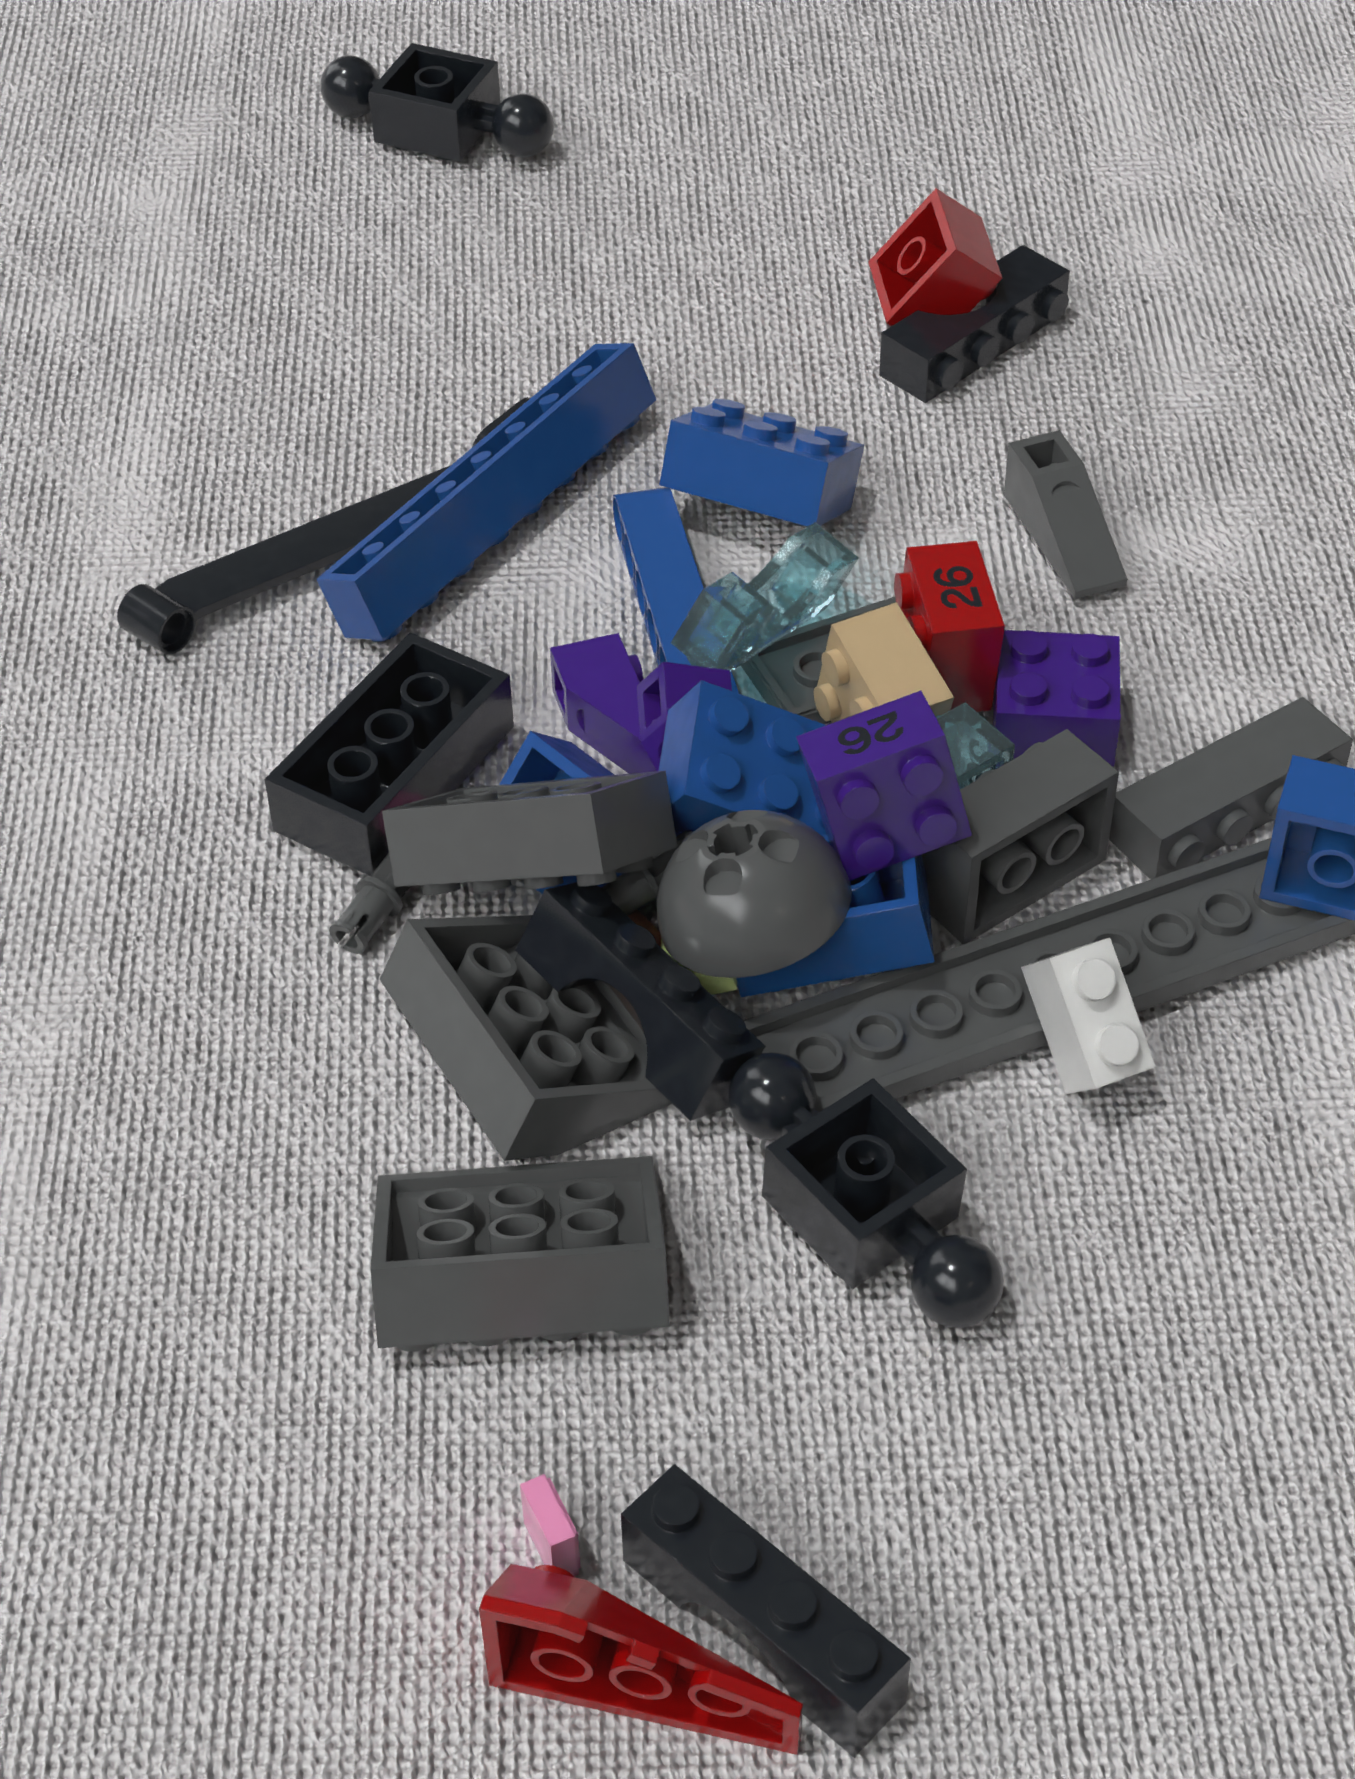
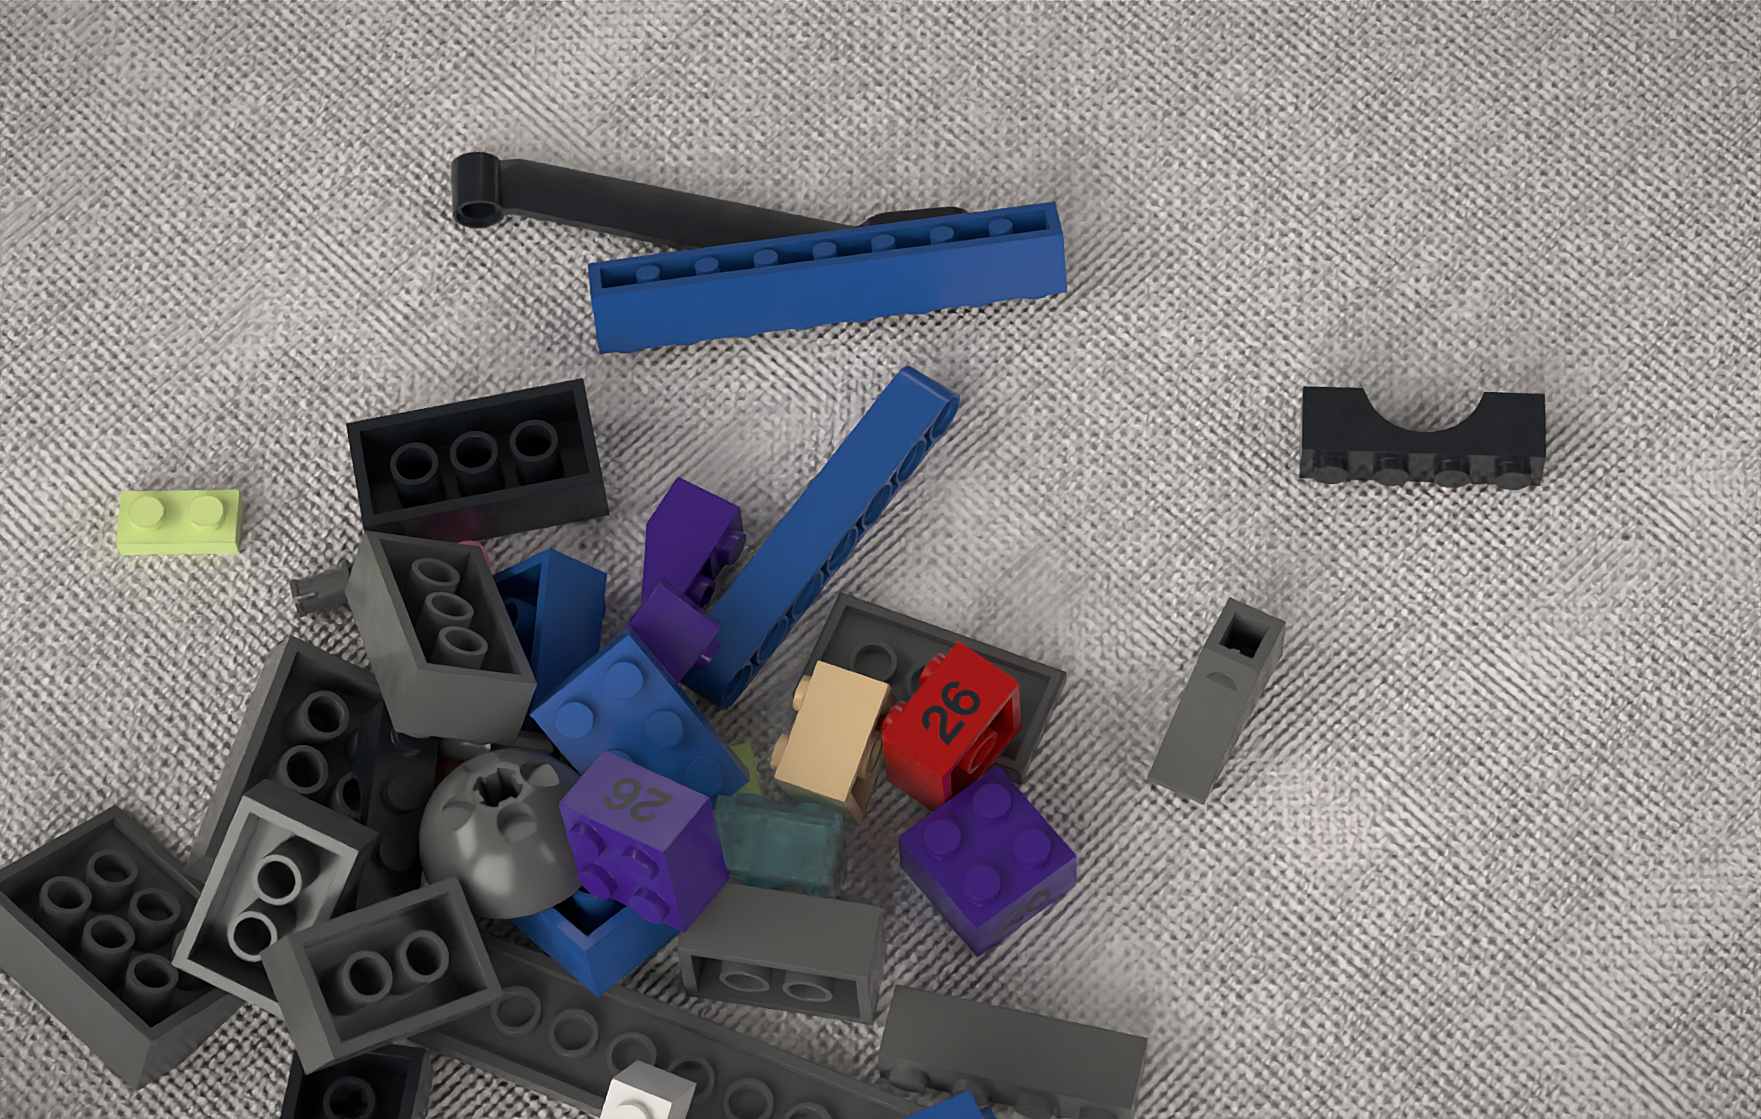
camera: 50 degrees right, 15 degrees up
(182, 968) = (179, 522): none -> yellowish green plate
(638, 1068) = (274, 875): none -> dark grey brick
(742, 619) = (892, 581): clear light blue arch -> none
(762, 463) = (1039, 440): blue brick -> none
(800, 1035) = (380, 974): none -> dark grey brick
(935, 262) = (1428, 357): red brick -> none

